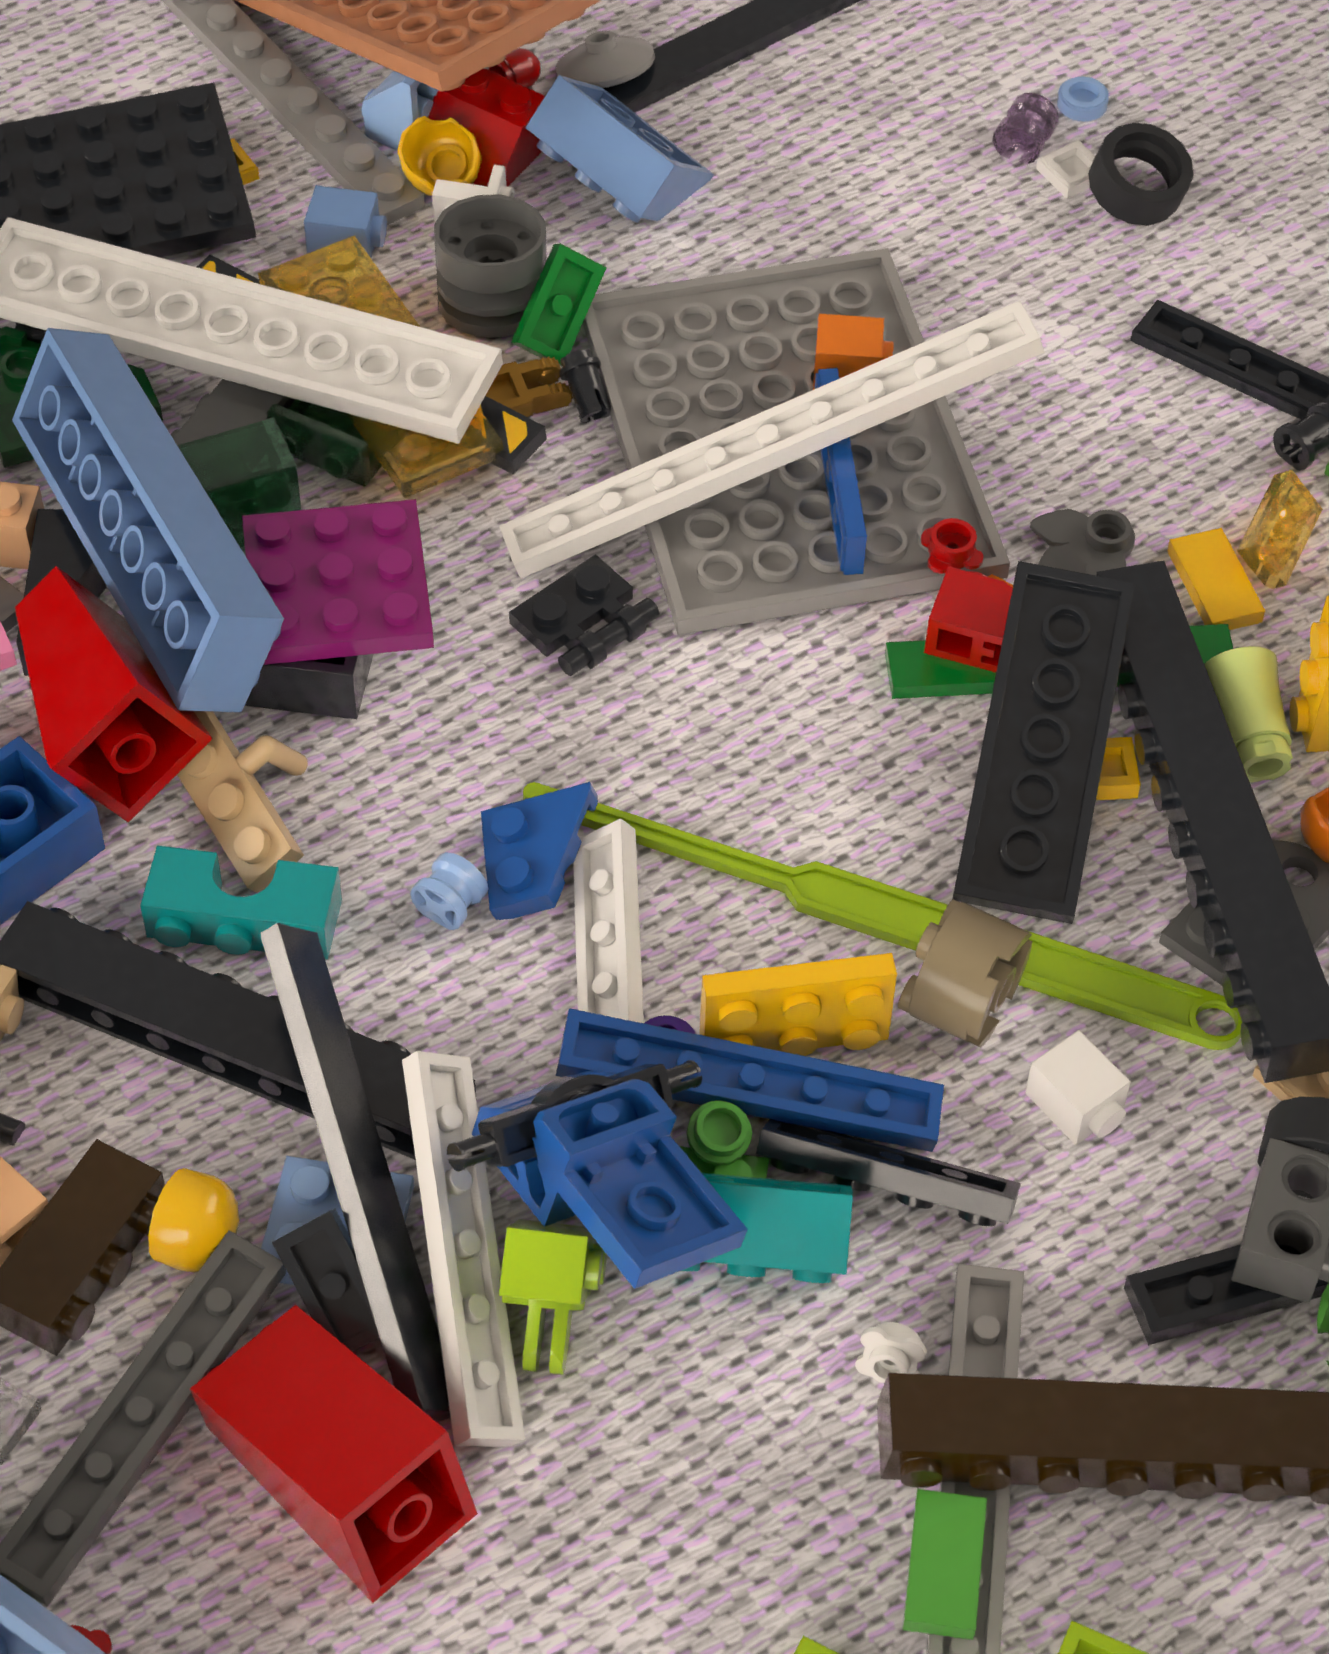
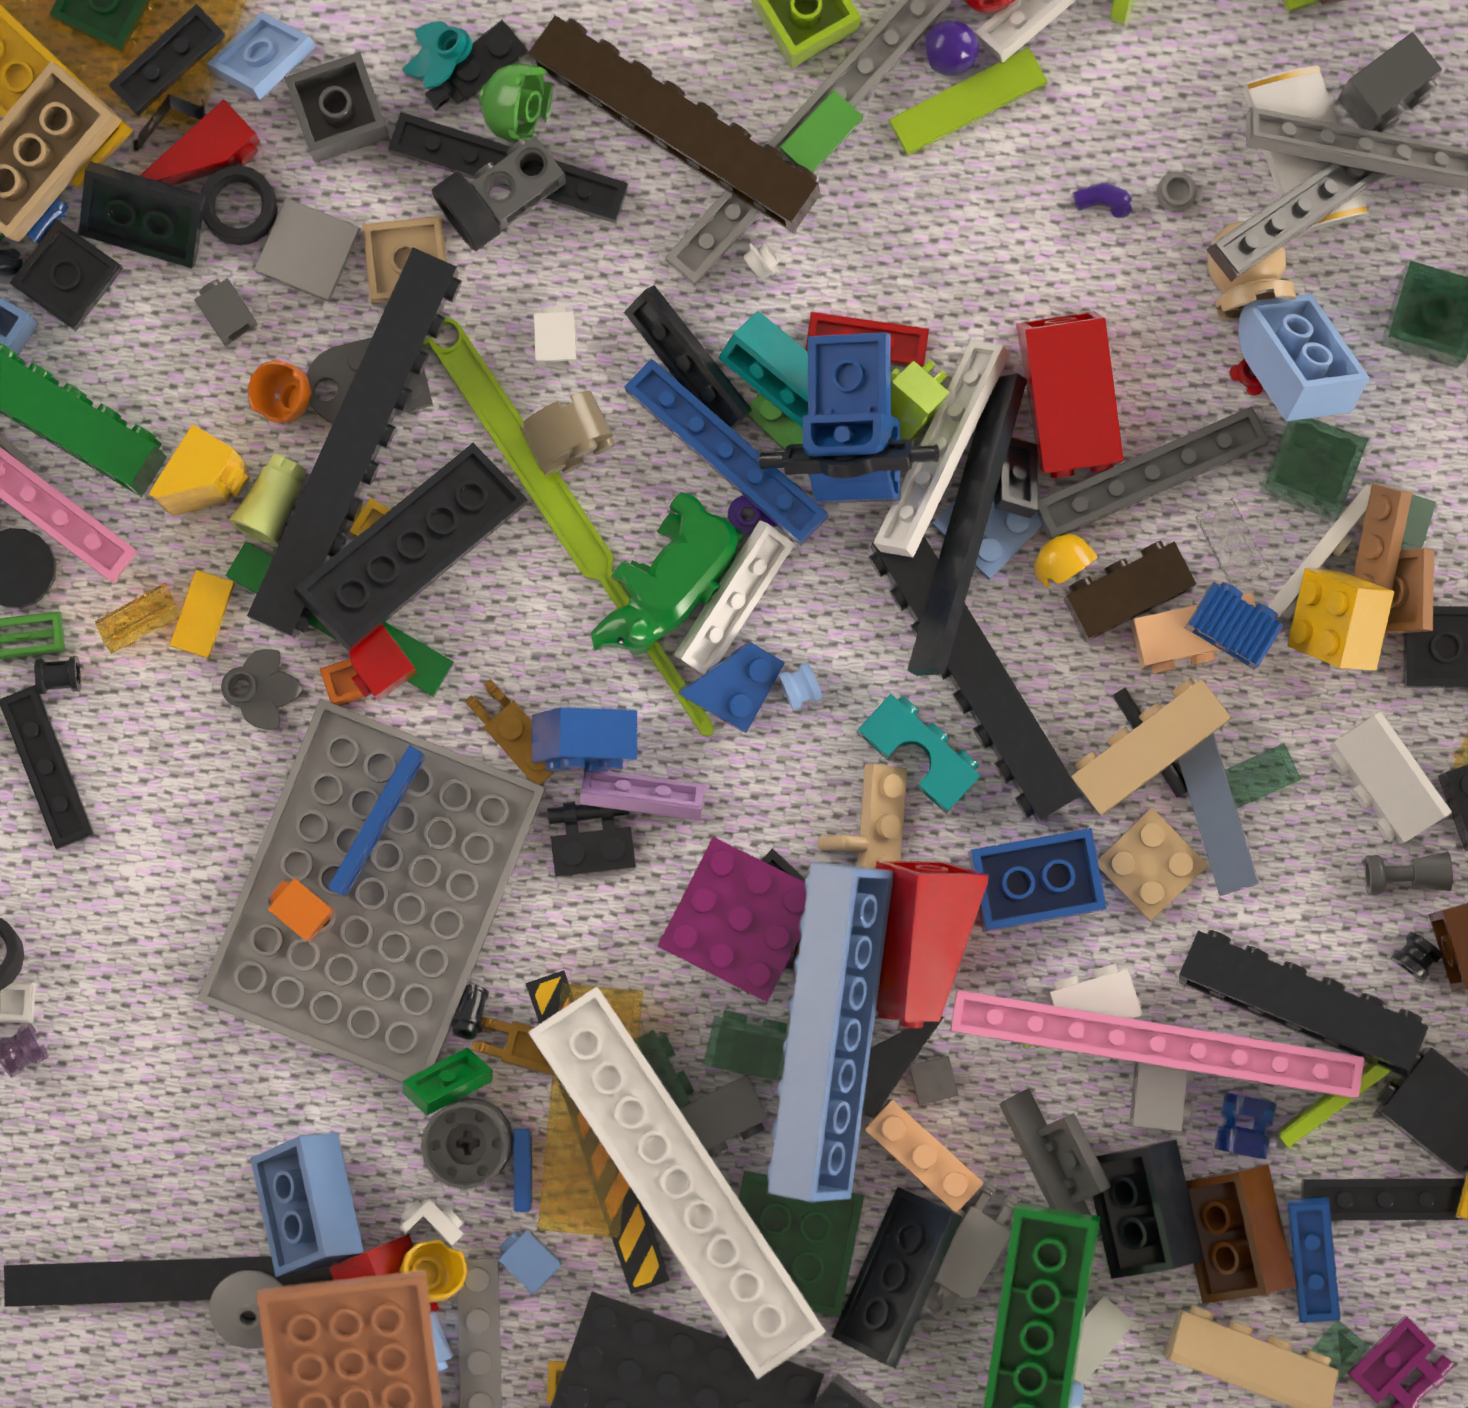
camera: 145 degrees left, 30 degrees up
(414, 287) = (522, 1170): none -> blue tile
(557, 679) = (642, 794): none -> lavender tile
(670, 1353) = (906, 341): none -> red tile
(671, 662) = (584, 738): none -> blue brick
(699, 888) = (676, 581): none -> green animal
(719, 1133) = (764, 431): bright green plate -> none
(759, 665) = (512, 732): none -> pearl gold hinge
(771, 439) = (410, 853): white plate -> none
(802, 1004) = (674, 470): yellow plate -> none
(951, 544) = (339, 727): red plate -> none

